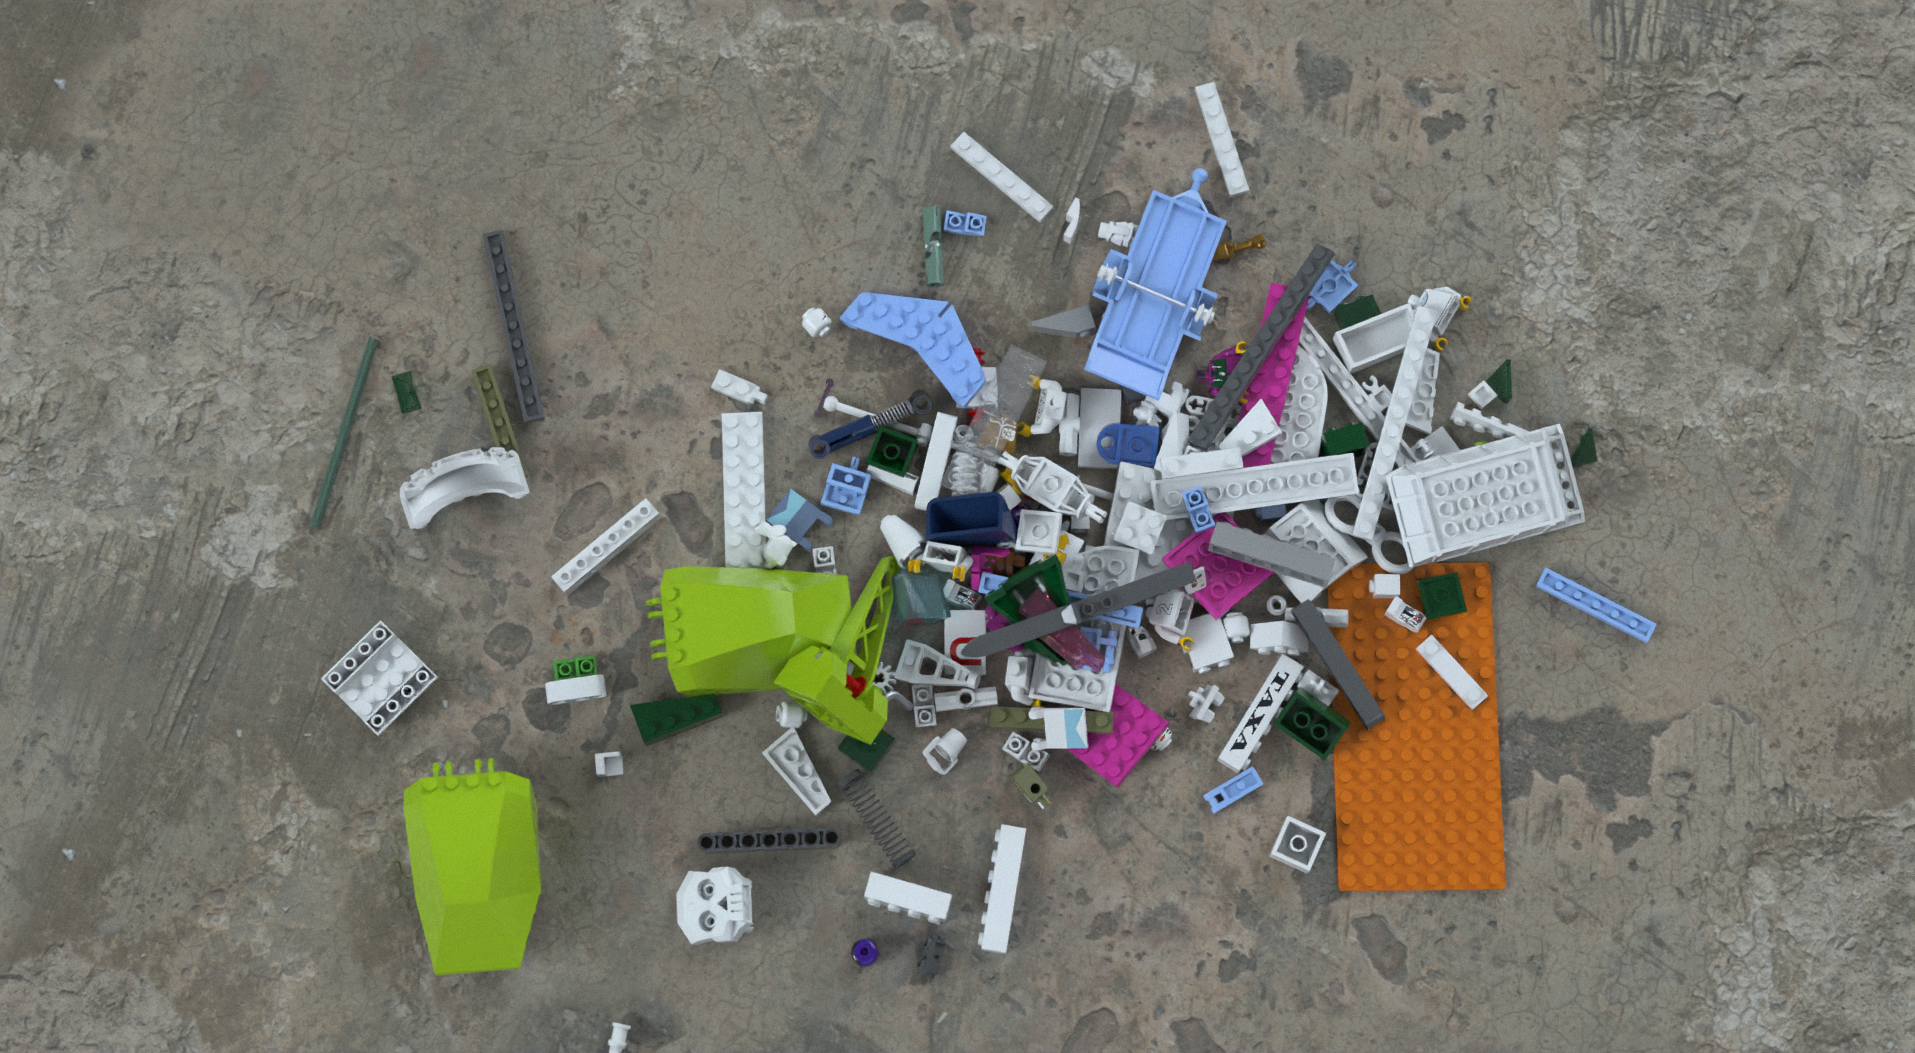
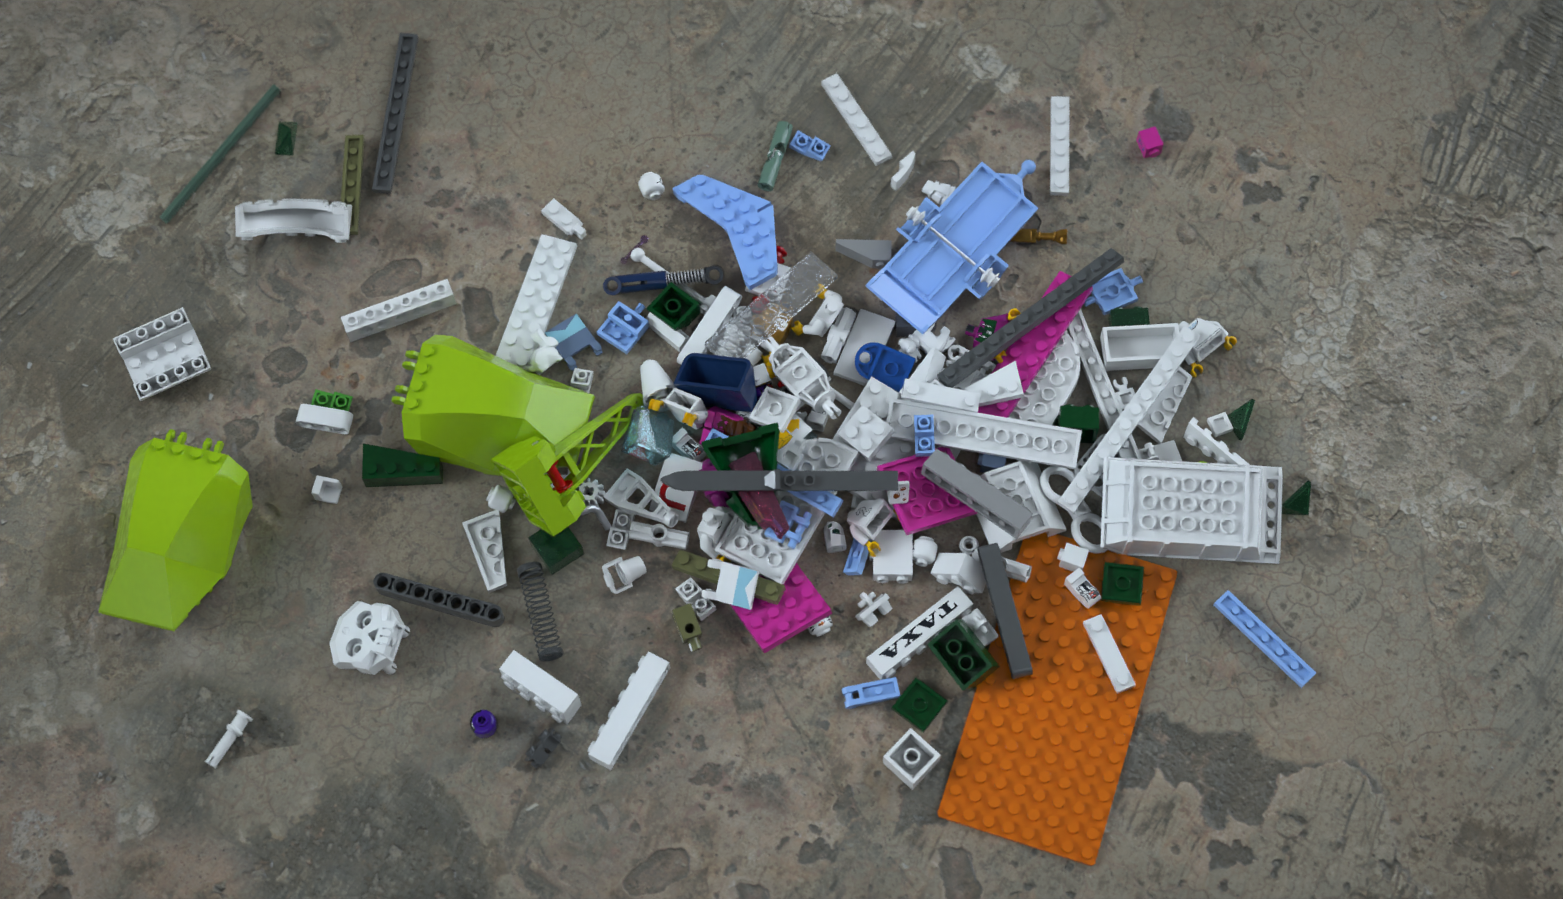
camera: 20 degrees right, 10 degrees down
(1171, 658) = (856, 559): none -> light blue plate
(1284, 786) = (919, 705): none -> dark green plate
(1314, 107) = (1149, 142): none -> dark pink brick

